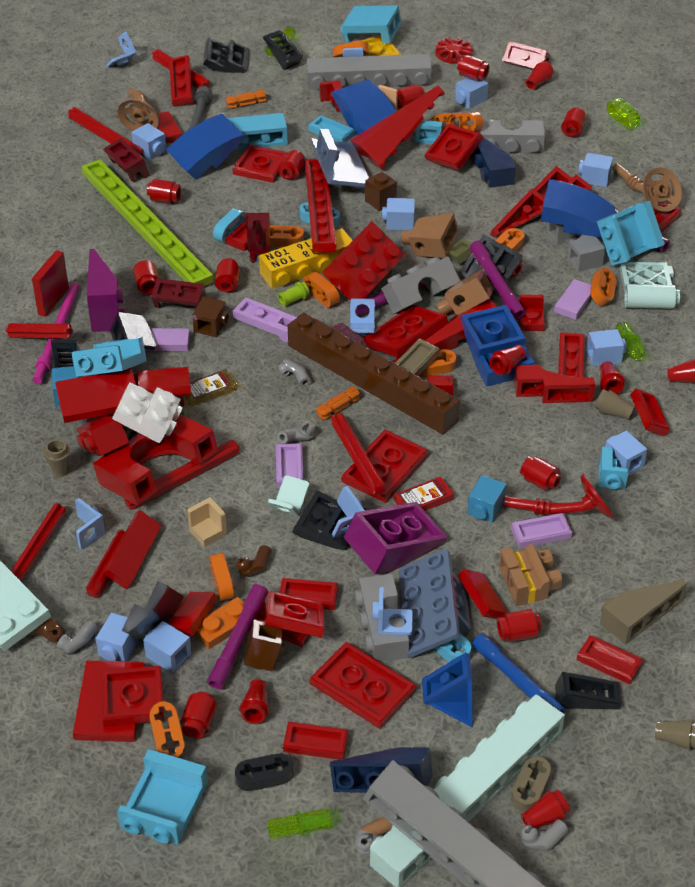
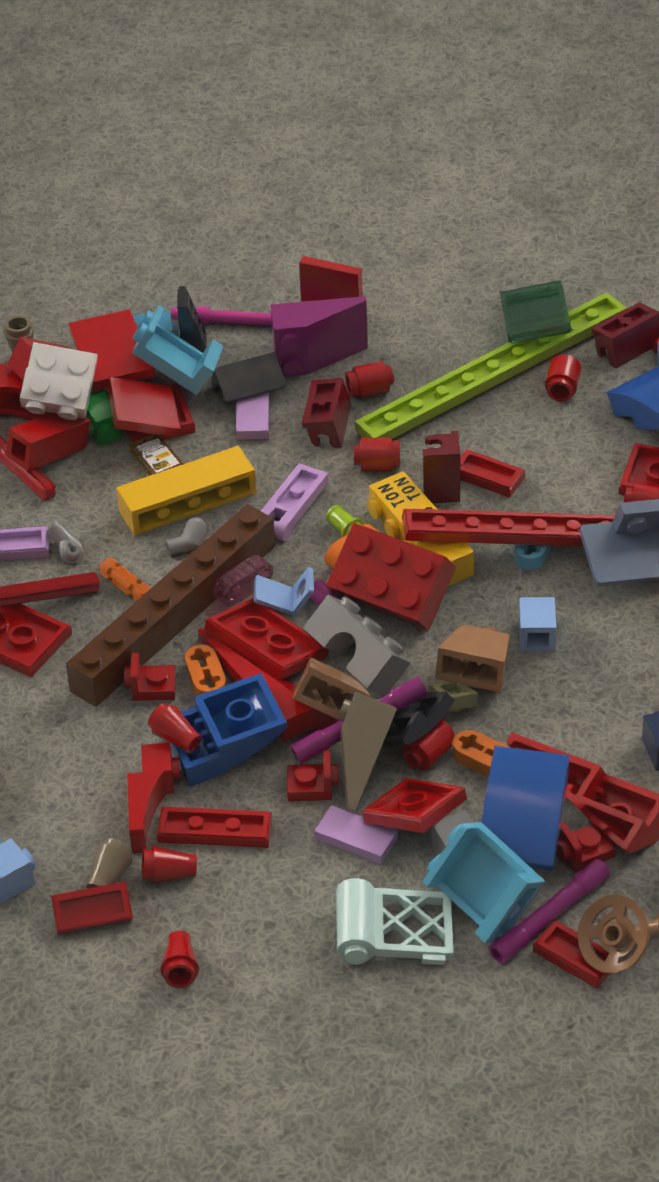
camera: 90 degrees right, 0 degrees up
(39, 330) = (253, 299): red axle -> none
(95, 196) = (535, 312): none -> clear green piece
(210, 316) = (289, 444): reddish brown brick -> none
(228, 224) = (492, 445): medium azure beam -> none
(250, 368) = (186, 490): none -> yellow brick
(285, 235) = (480, 487): orange beam -> none
(378, 189) = (587, 598): reddish brown brick -> none
(418, 357) = (192, 644): dark tan tile -> none
(528, 276) = (362, 737): none -> dark tan slope
(561, 265) = (414, 805): none -> red tile
(603, 286) = (378, 853): orange beam -> none
(605, 346) = (230, 859): light blue brick -> none
(632, 341) = (251, 893): clear neon green axle -> none

